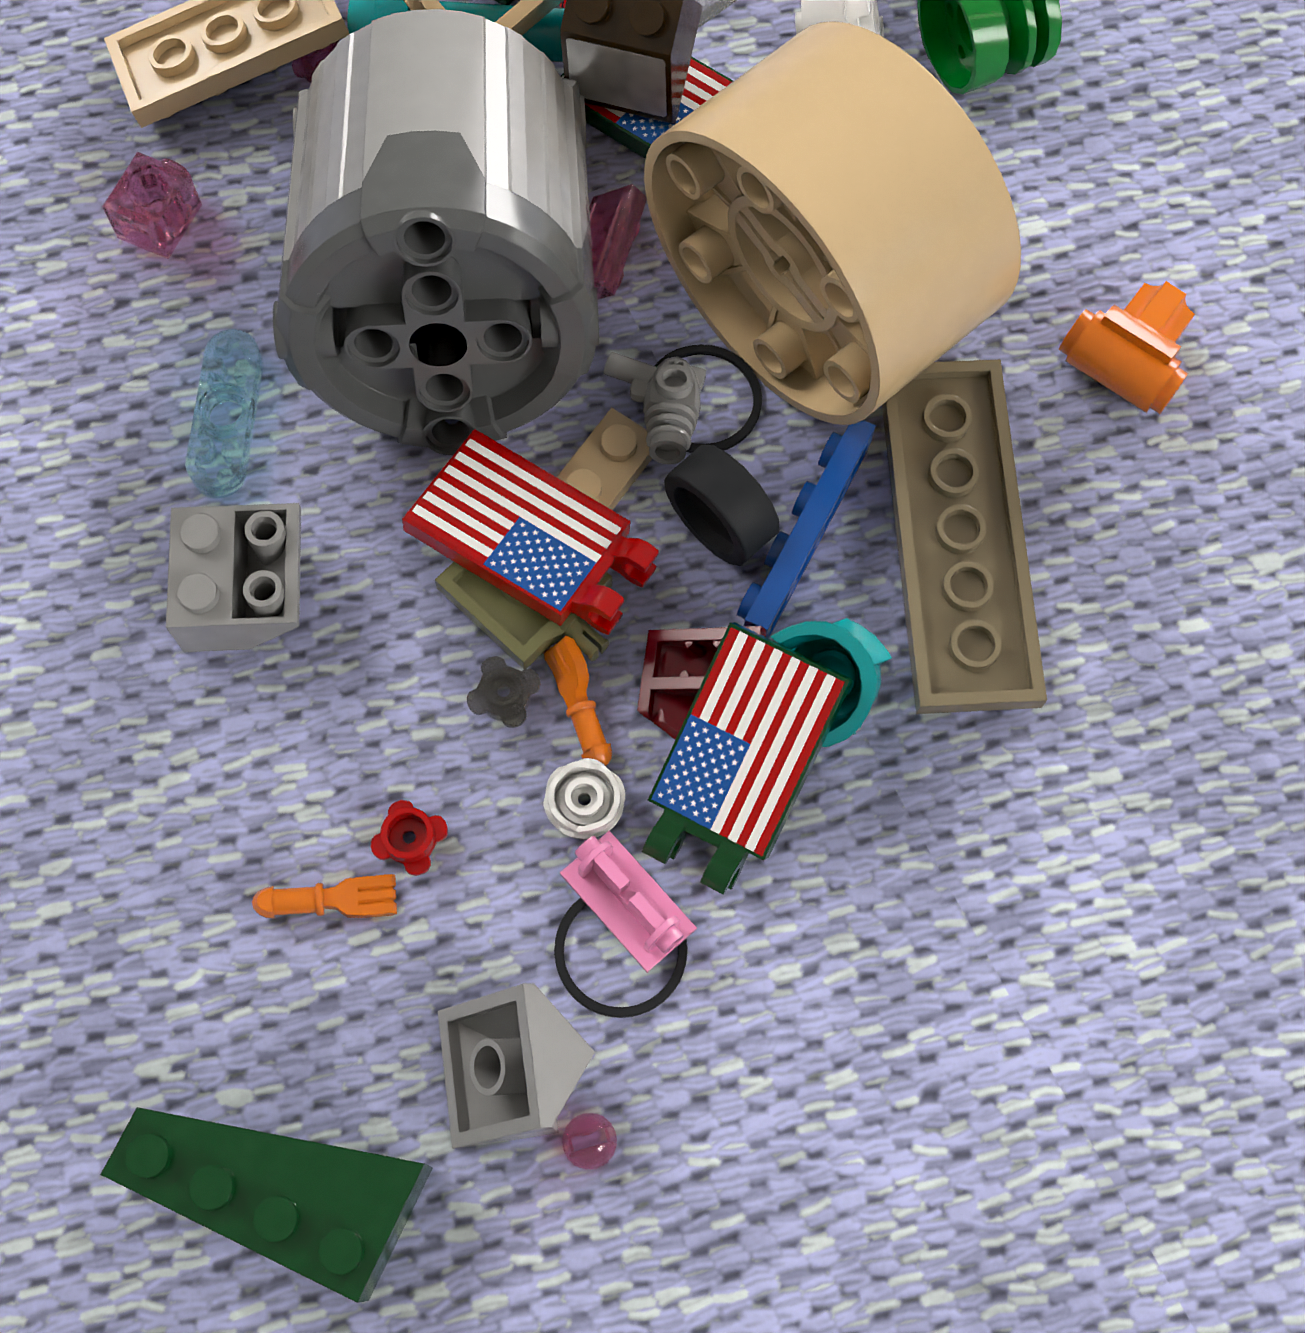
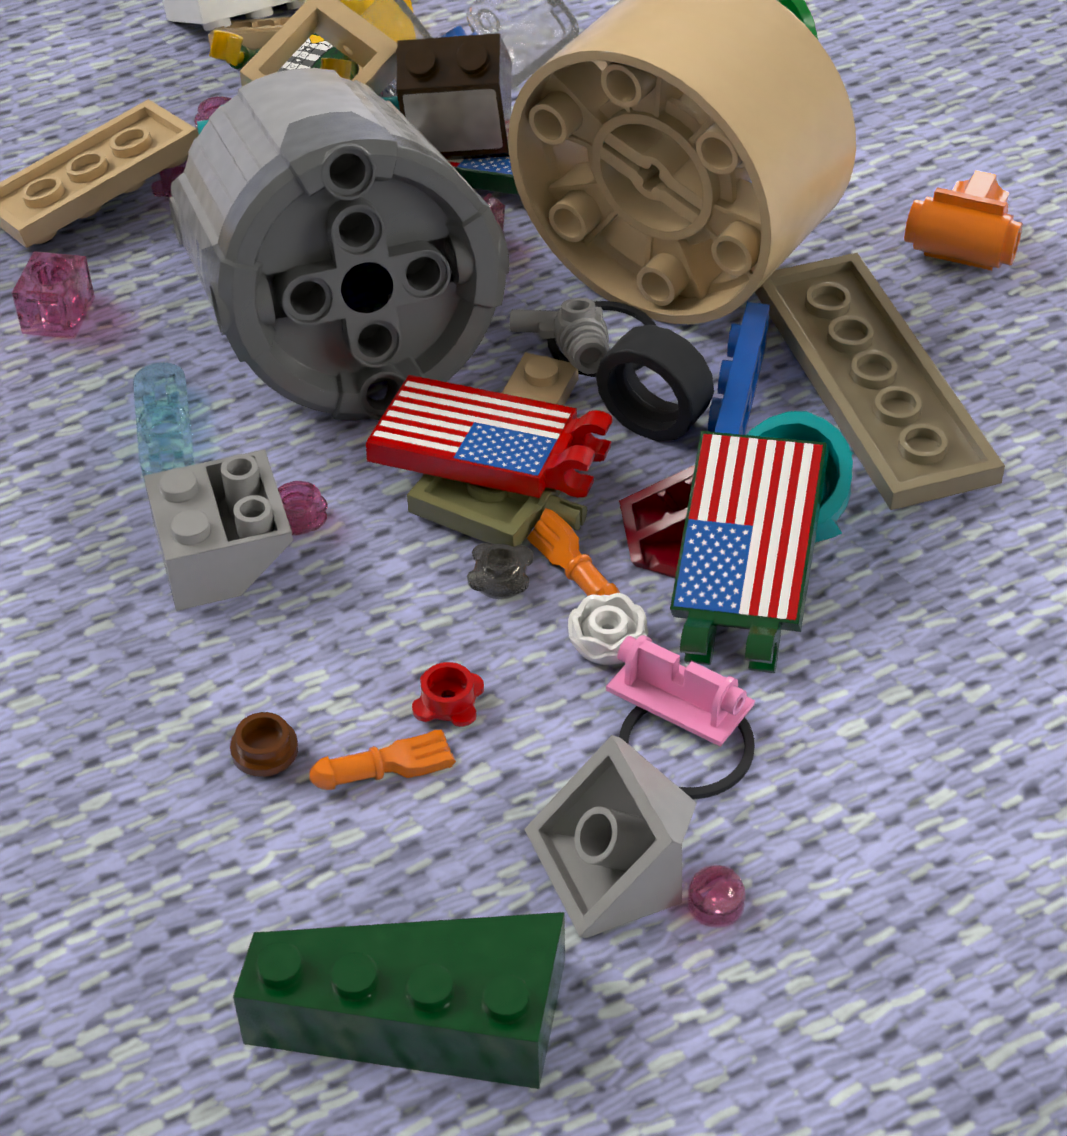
camera: 10 degrees left, 25 degrees down
(220, 852) = (263, 745): none -> reddish brown plate
(323, 547) = (303, 506): none -> clear pink plate

